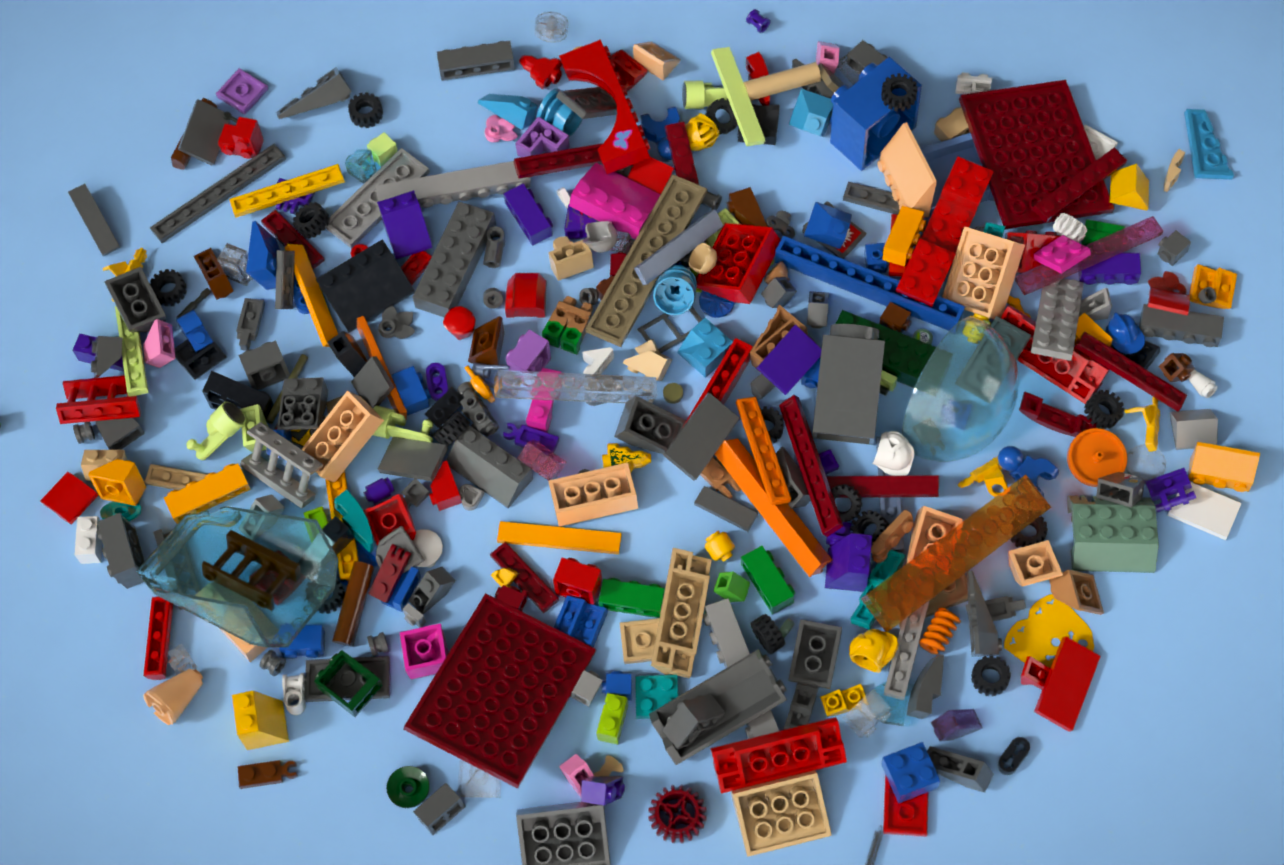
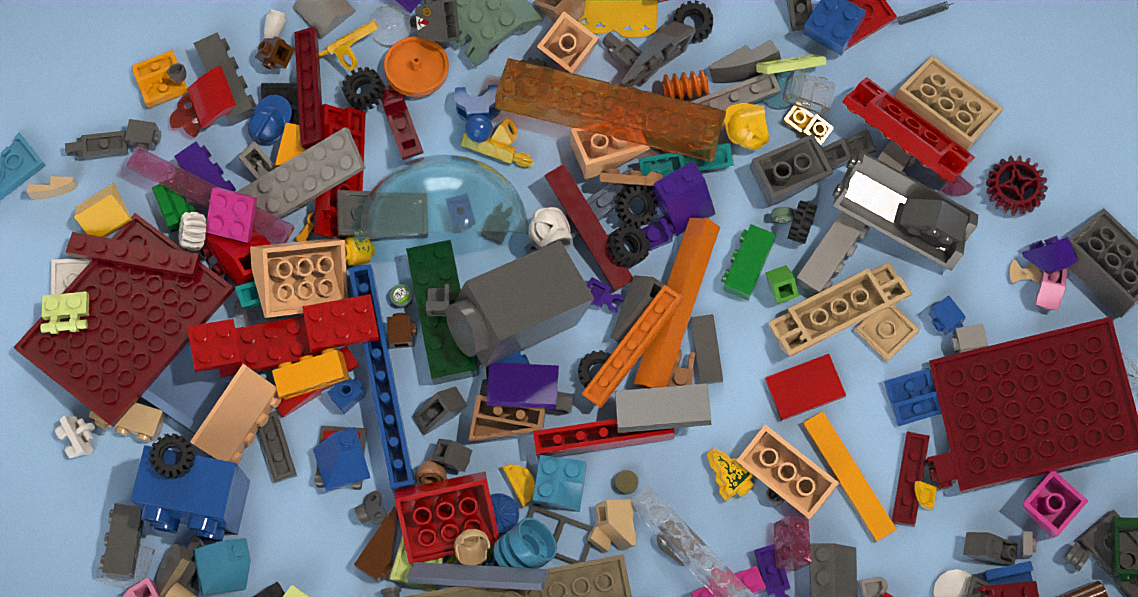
camera: 125 degrees left, 10 degrees up
(578, 580) = (883, 418): red brick -> none
(597, 360) = (645, 572): white slope -> none
(612, 718) = (981, 297): lime brick -> none
(631, 597) = (857, 365): green brick -> none
(645, 554) = (805, 387): none -> red tile
(648, 425) = (680, 473): dark grey slope -> none
(654, 692) = (928, 282): teal plate -> none
(708, 774) = (959, 188): none -> clear pink tile
(719, 546) = (749, 325): yellow head -> none
(730, 328) = (522, 482): none -> yellow tile
(811, 466) = (614, 295): dark red plate -> none
(894, 345) = (438, 301): none -> dark grey panel
(899, 715) = (791, 64): none -> yellowish green tile
(956, 724) = (760, 19): clear purple slope -> none
(1072, 123) = (65, 306): none -> yellowish green plate
(1186, 216) = (98, 145): none -> dark grey hinge

